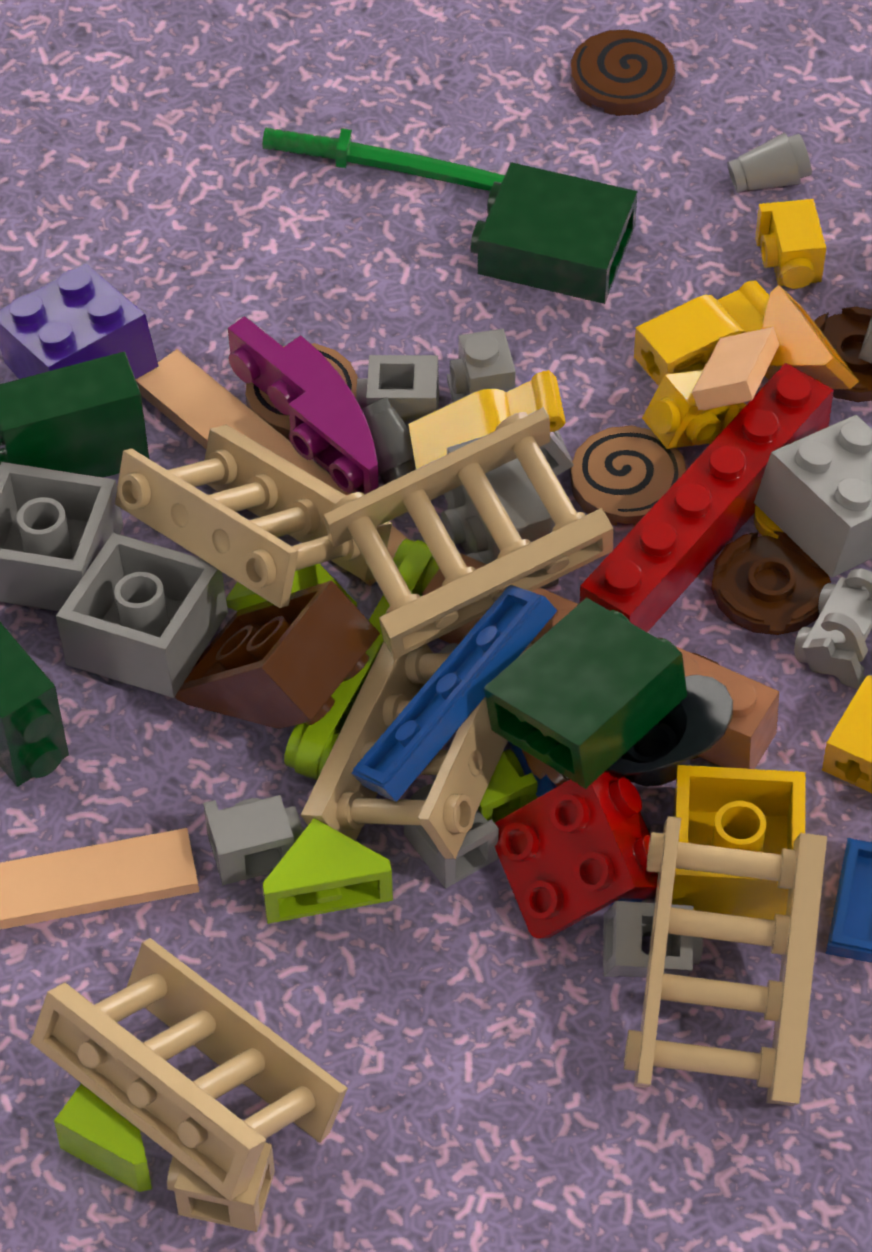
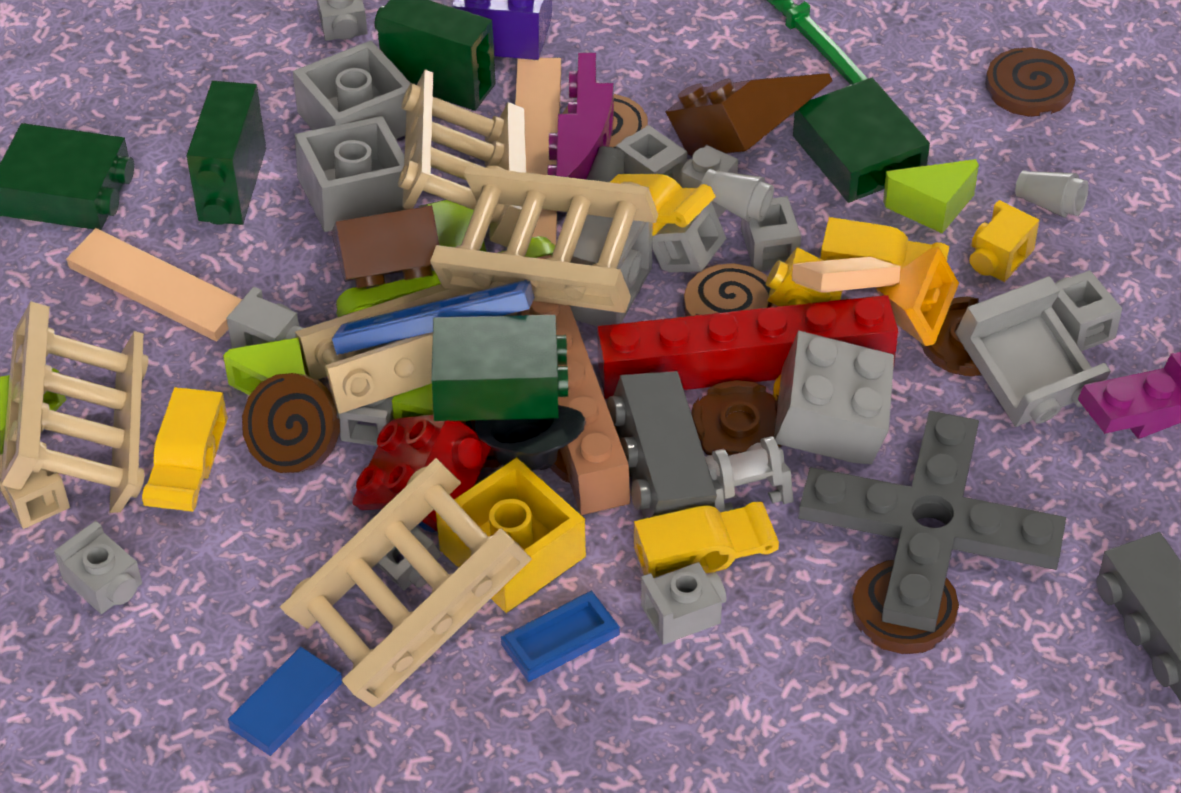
camera: 45 degrees right, 5 degrees down
(329, 1017) = (185, 448): none -> yellow piece
(401, 1220) = (98, 568): none -> light grey brick
(408, 907) = (290, 423): none -> reddish brown tile
(435, 278) = (739, 113): none -> reddish brown slope
(566, 354) = (740, 193): none -> light grey cone
(594, 380) = (773, 236): none -> light grey brick
(680, 242) = (931, 192): none -> lime slope
(719, 1168) = (285, 701): none -> blue tile
(764, 645) = (660, 444): none -> dark grey brick

